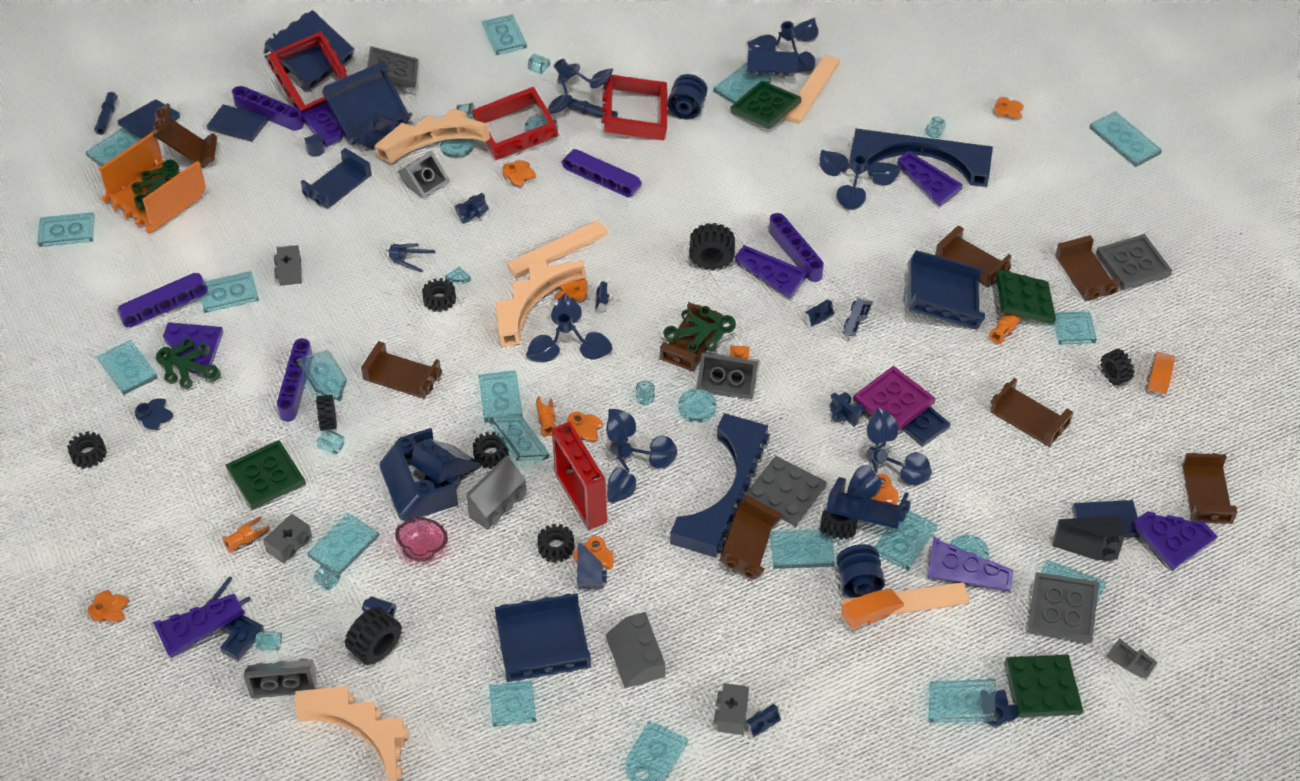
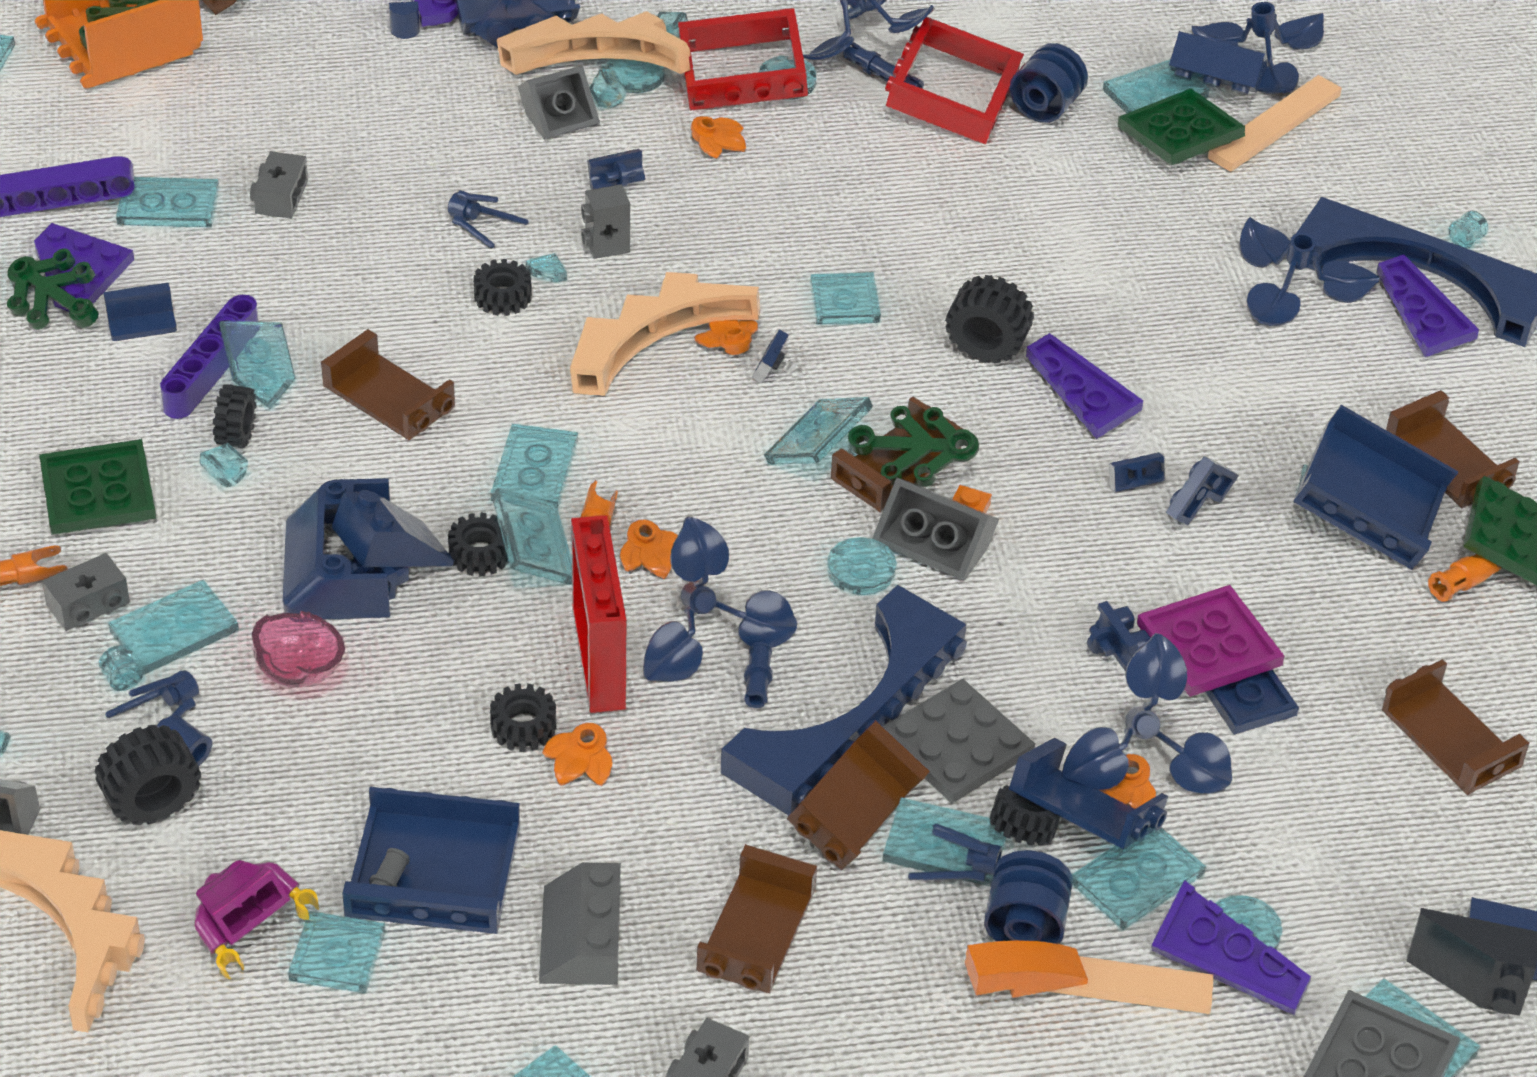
camera: 15 degrees right, 5 degrees down
(243, 363) = (140, 312): none -> dark blue panel
(339, 180) = (419, 82): dark blue panel -> none
(361, 582) = (175, 690): none -> dark blue plant
(447, 159) = (607, 88): none -> clear light blue brick
(452, 692) = (241, 900): none -> magenta torso
(482, 241) = (606, 221): none -> dark grey brick
(496, 493) = (454, 610): dark grey slope -> none
(523, 652) = (391, 868): none -> dark grey pin
(558, 248) = (737, 264): light nougat tile -> none
(564, 315) = (703, 364): dark blue plant -> none
(589, 570) = (557, 774): dark blue slope -> none
(601, 173) = (855, 167): dark purple beam -> none
(626, 252) = (845, 298): none -> clear light blue tile
(645, 334) = (818, 431): none -> clear light blue tile
(645, 393) = (779, 522): clear light blue wheel -> none
(669, 483) = (758, 675): none -> dark blue pin
(724, 620) = (758, 920): none -> reddish brown panel
(796, 247) = (1140, 358): dark purple beam -> none
(826, 553) = (980, 856): none -> dark blue plant

